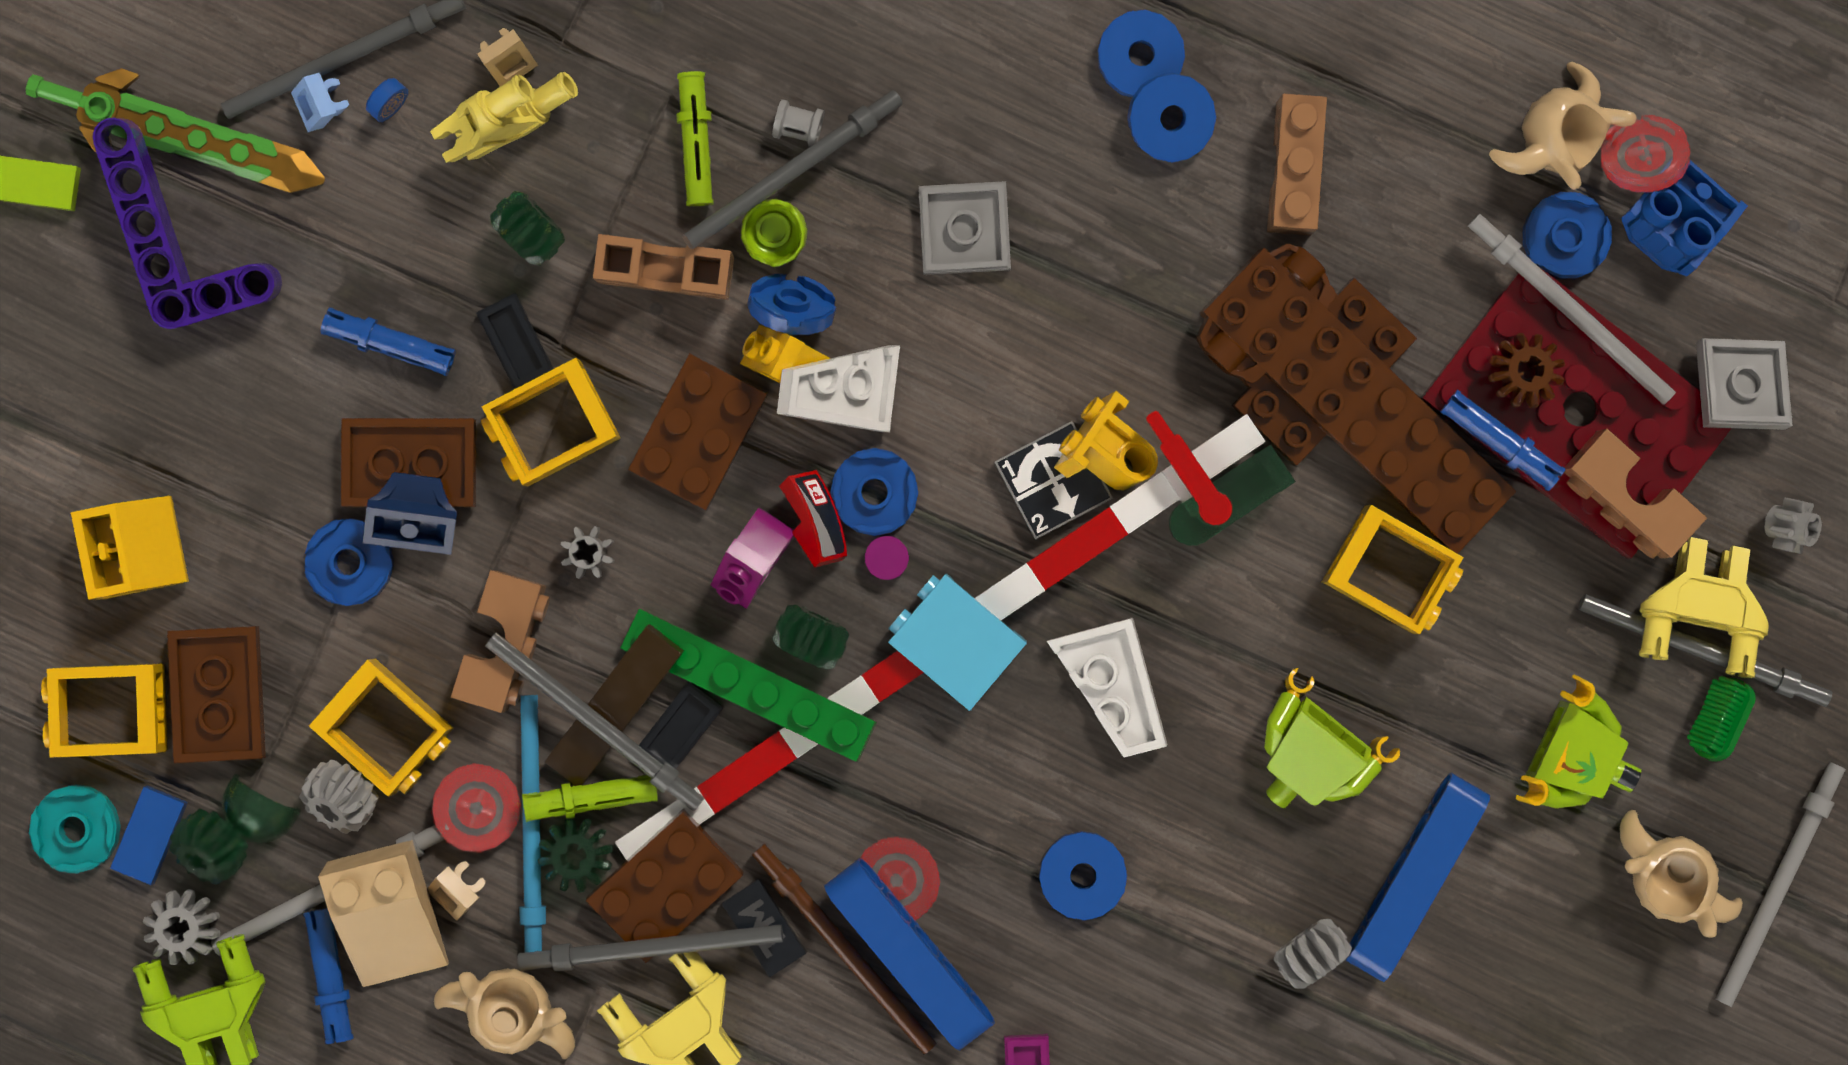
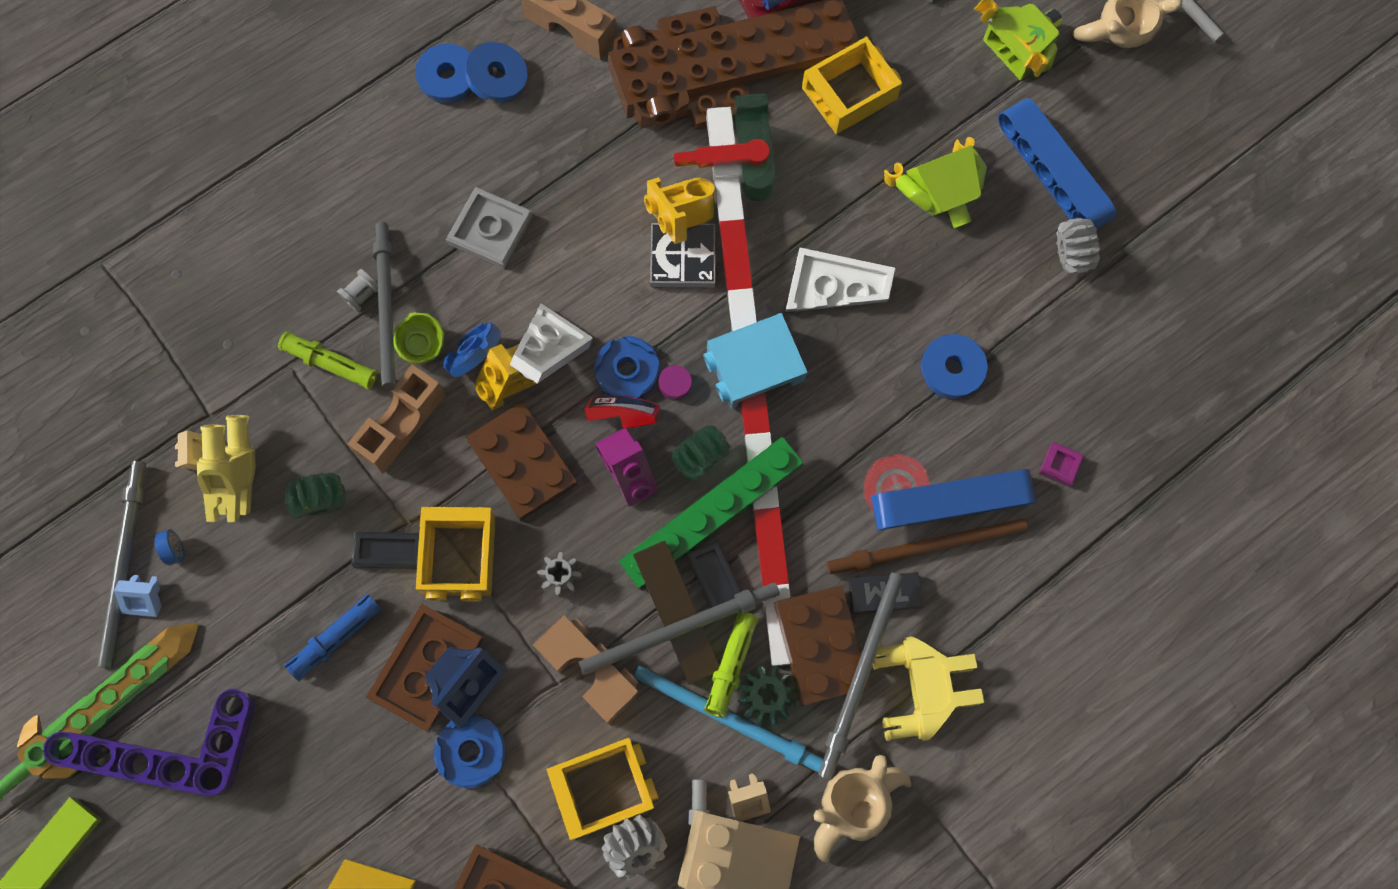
camera: 60 degrees left, 15 degrees down
(476, 808) = (696, 751): clear tile -> none

